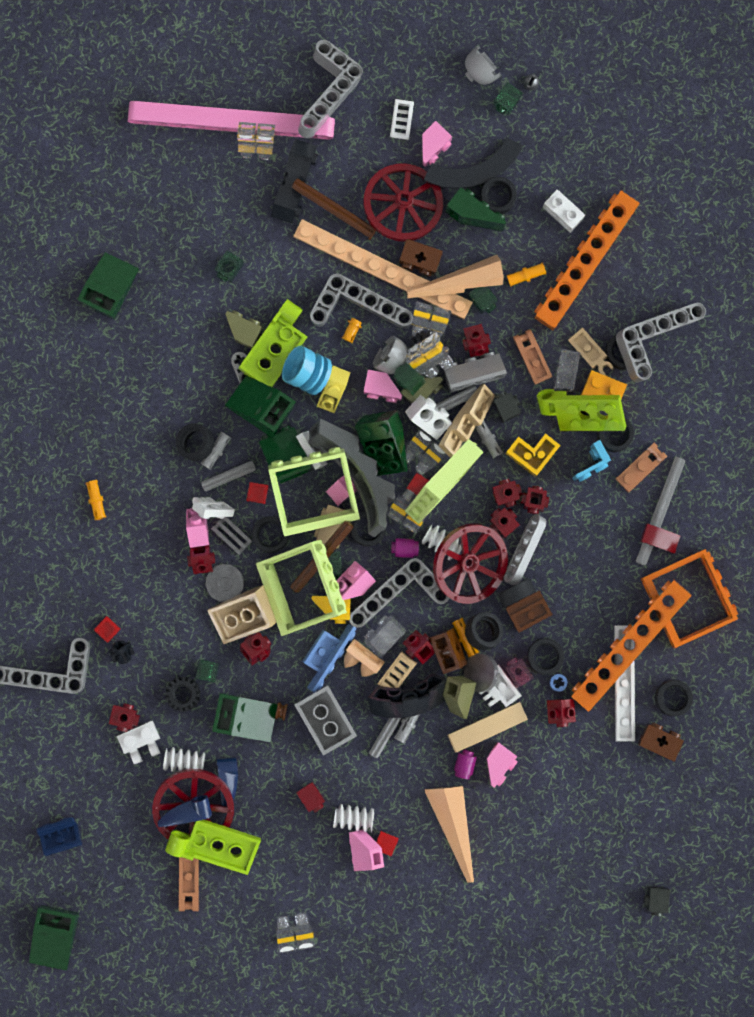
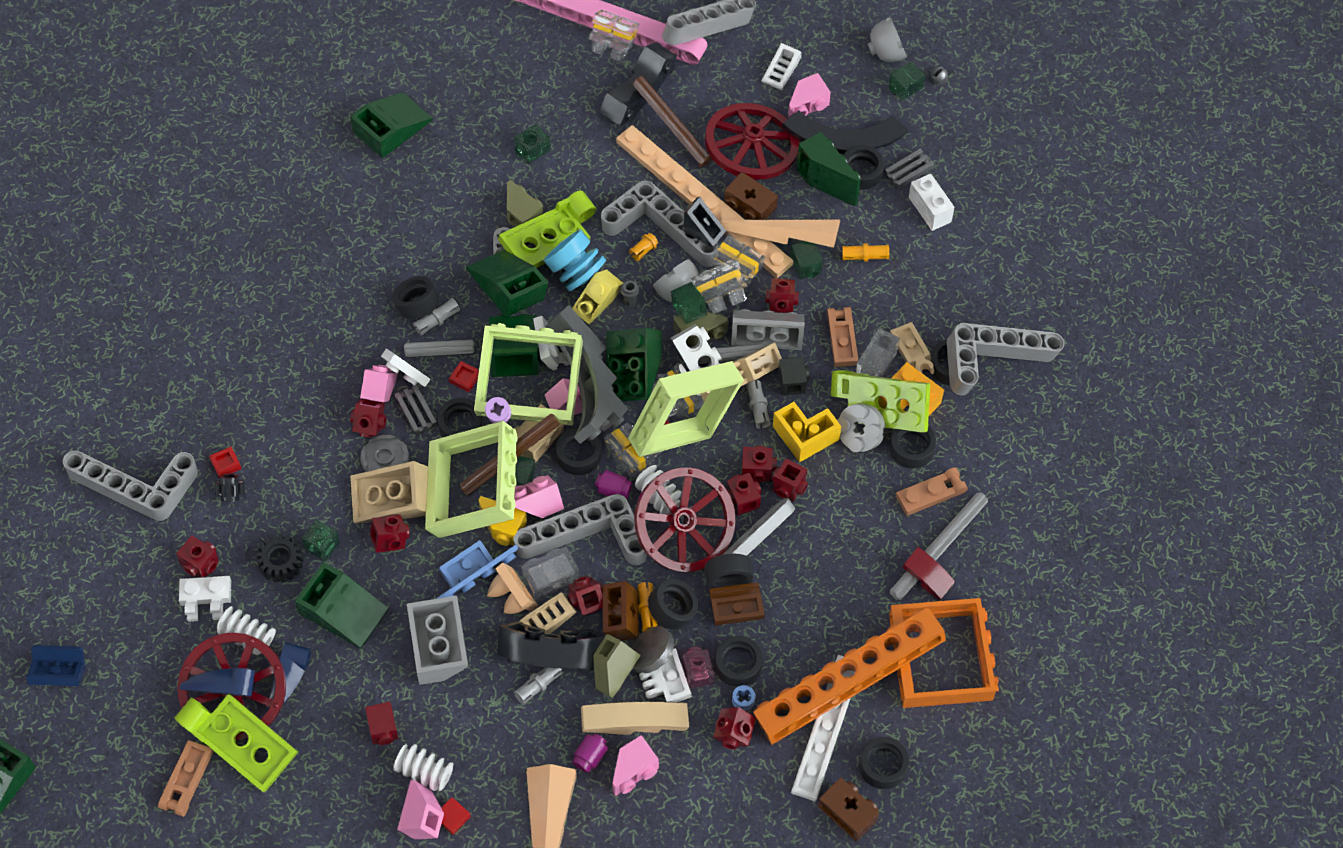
camera: 20 degrees right, 25 degrees down
(95, 500) = (277, 324): light orange pin -> none
(281, 711) = (389, 616): reddish brown bush -> none
(306, 530) = (499, 414): none -> lavender wheel
(354, 375) = (630, 291): none -> dark grey pin
(380, 385) = (653, 309): bright pink slope -> none
(384, 736) = (505, 686): light grey axle -> none
(396, 303) = (702, 223): none -> black slope
(526, 194) = (904, 162): none -> flat silver tile
(569, 444) = (873, 429): none -> light grey plate
(597, 453) = (873, 465): medium azure bracket -> none
(627, 206) = (880, 303): orange brick -> none

